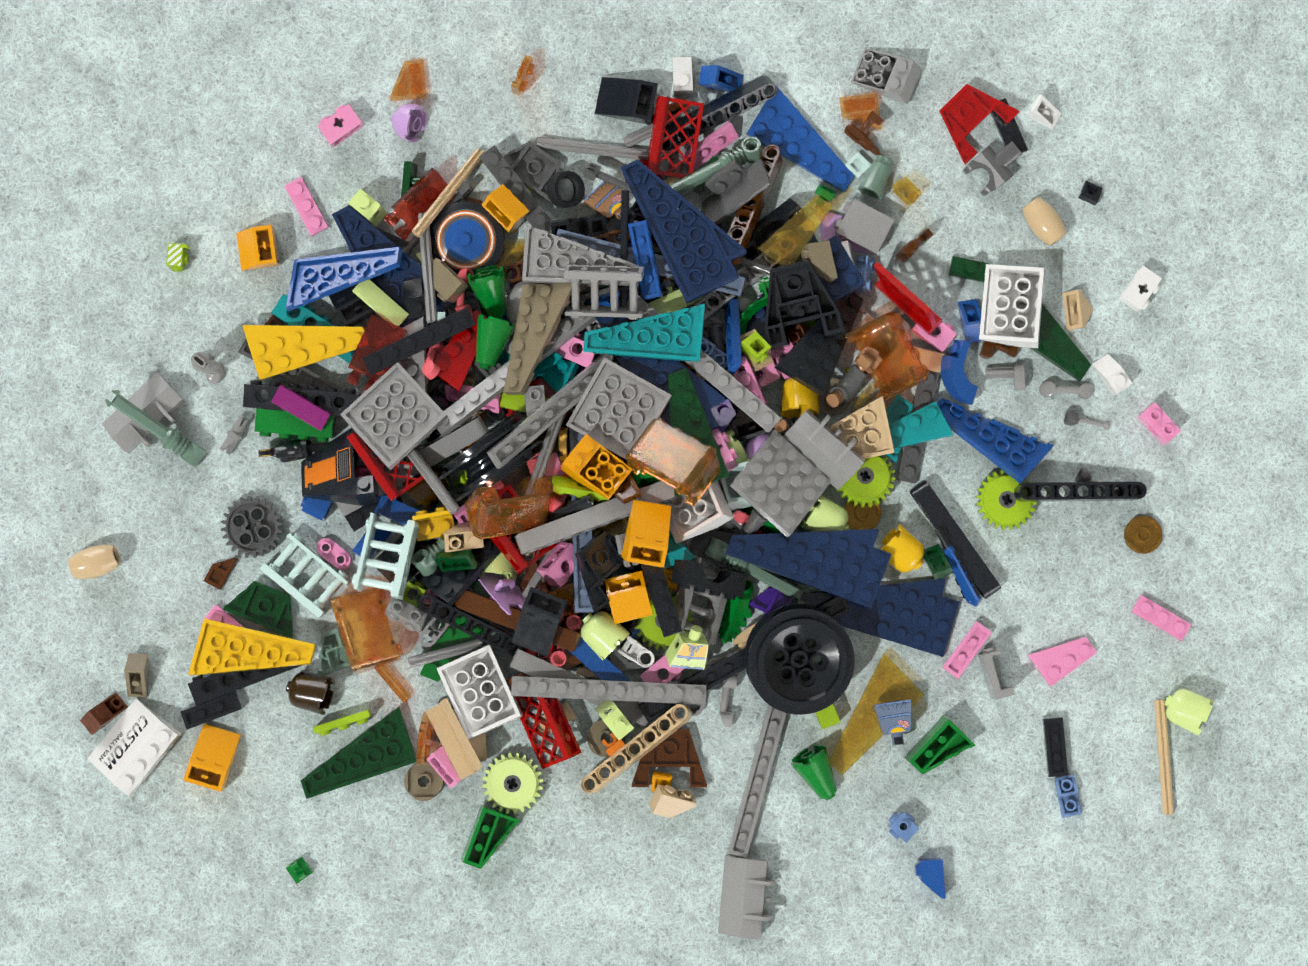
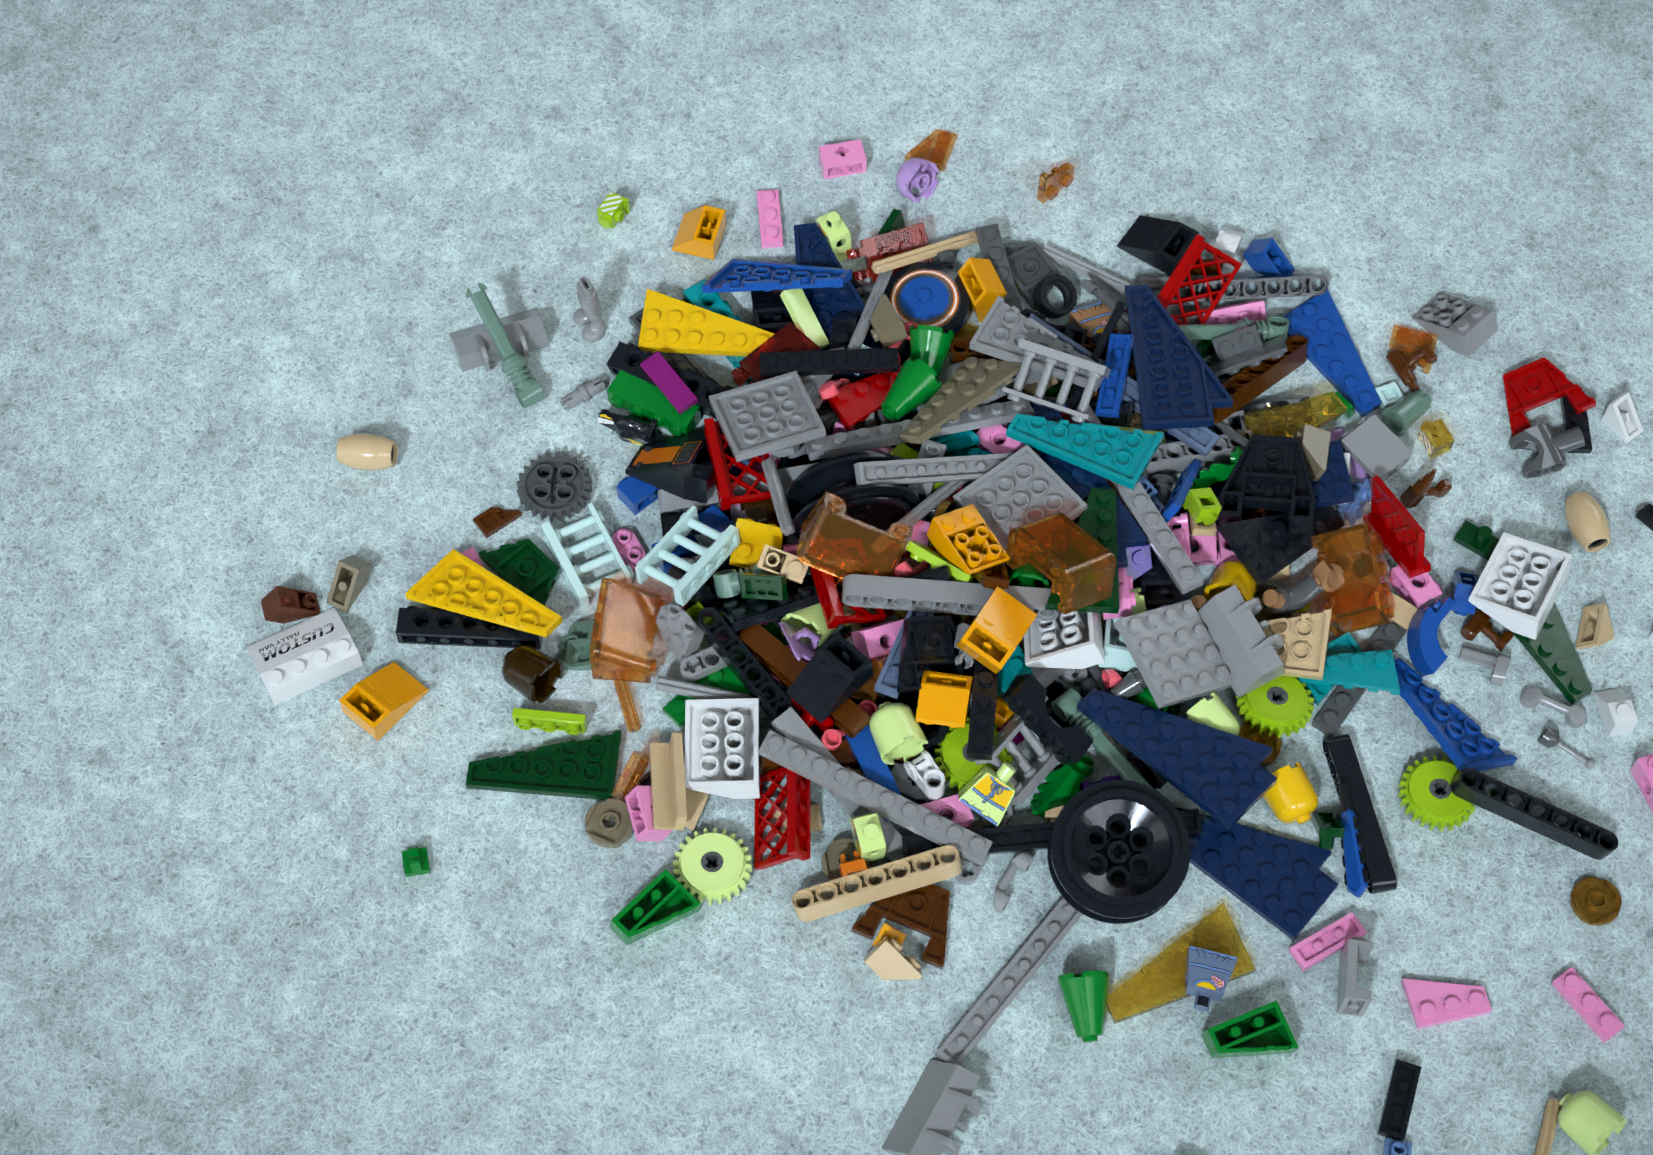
camera: 30 degrees right, 25 degrees down
(211, 710) = (409, 650): black plate -> none
(827, 717) = (1124, 943): lime brick -> none
(907, 831) = (1168, 1111): medium blue brick -> none

